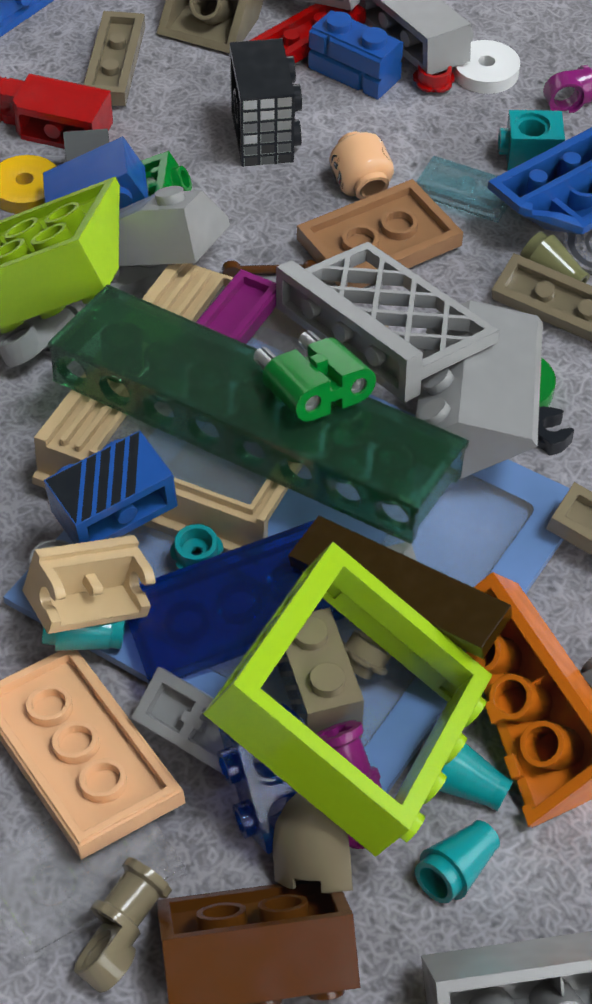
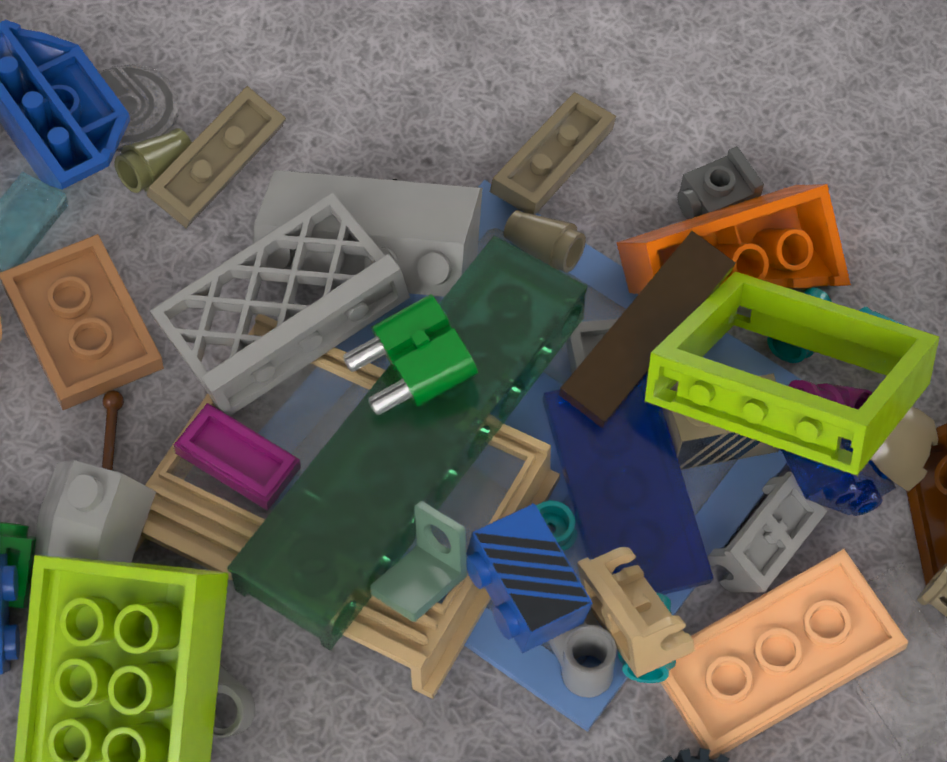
camera: 90 degrees left, 10 degrees up
(110, 419) = (427, 570): none -> sand green bracket
(514, 536) = (546, 239): none -> dark tan cone

